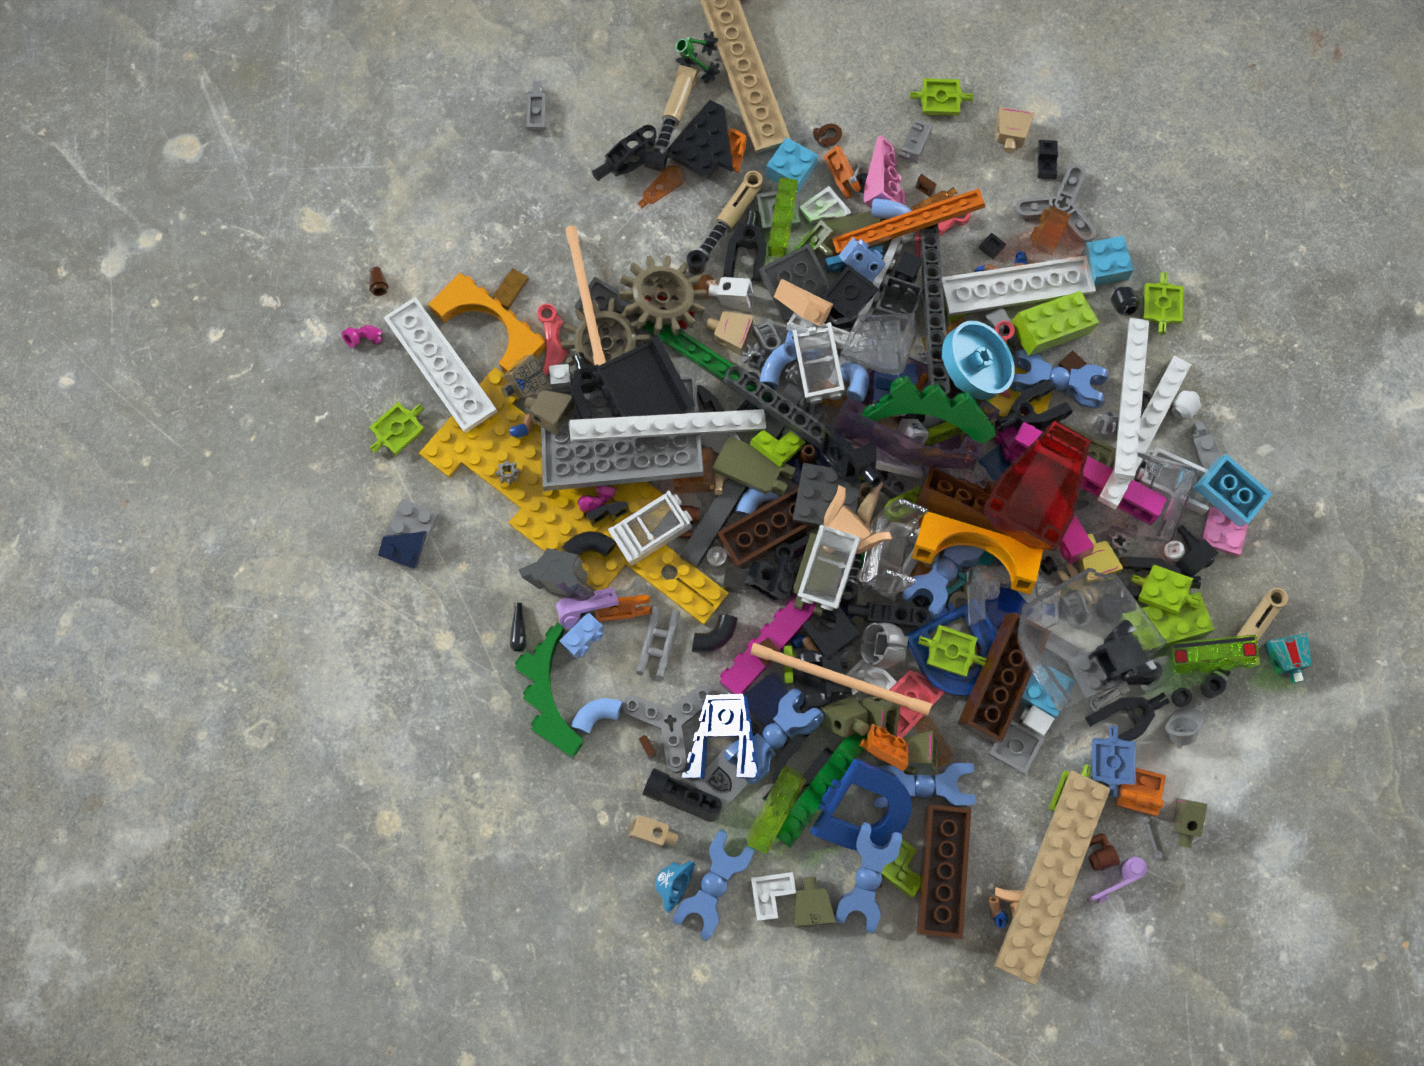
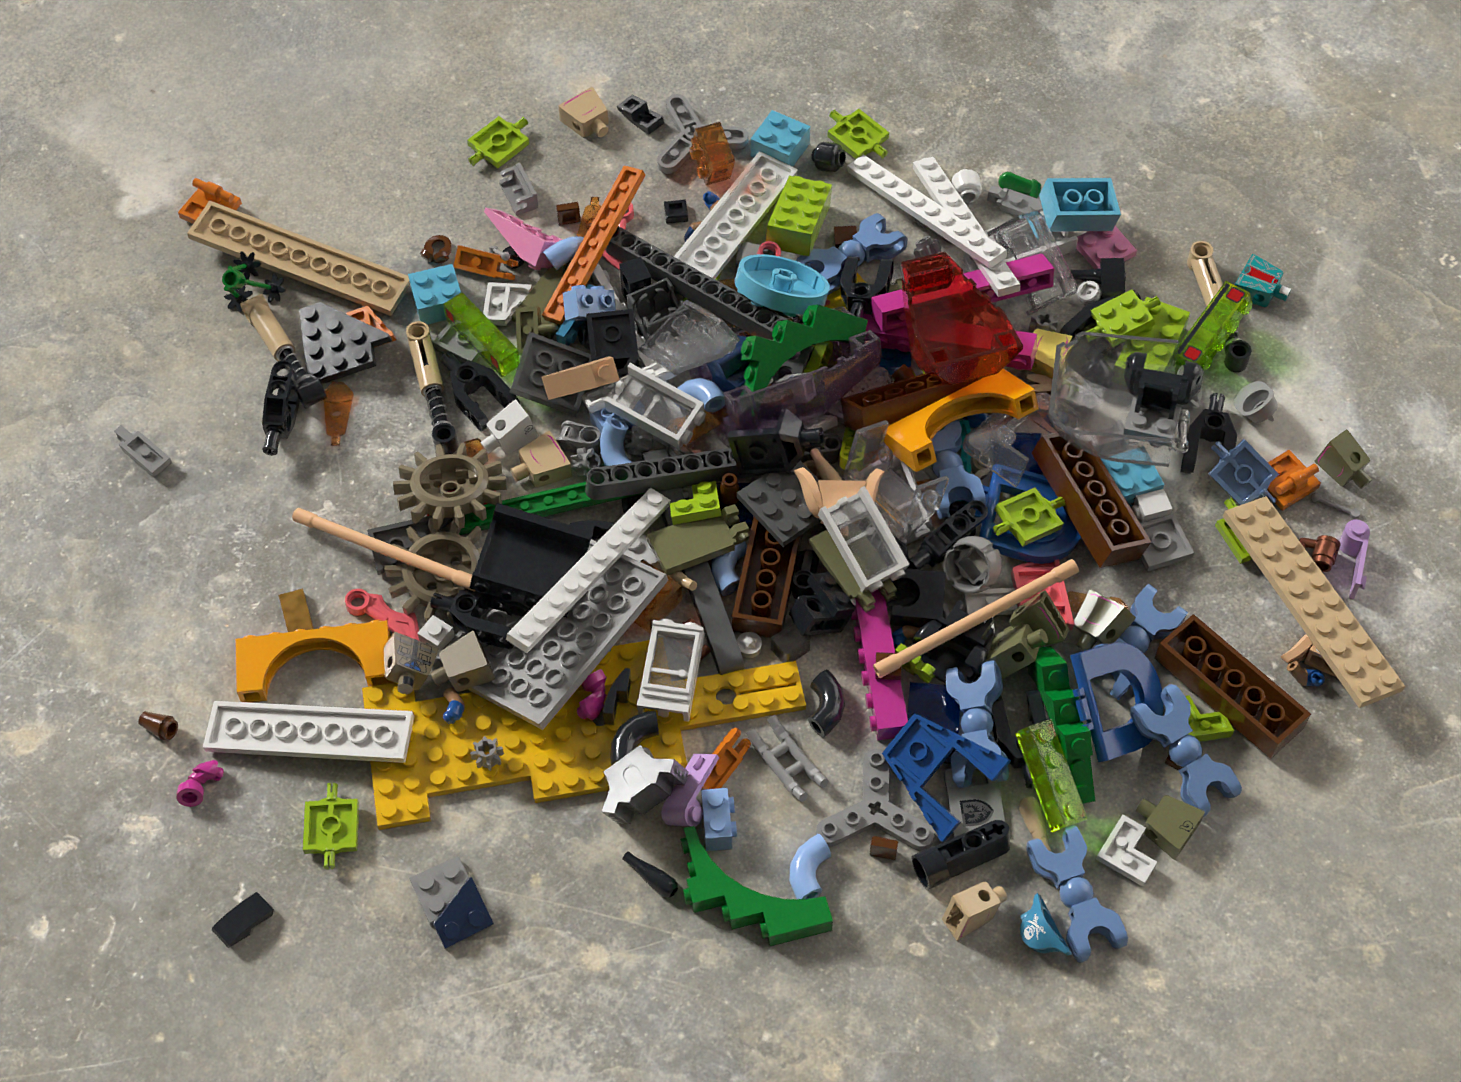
camera: 50 degrees left, 15 degrees down
(304, 433) = (241, 919): none -> black slope
(743, 823) = (1034, 819): none -> tan piece
(886, 747) = (1075, 631): orange plate -> none
(1186, 692) = (1226, 381): black bush -> none
(1220, 435) = (1019, 184): none -> green piece

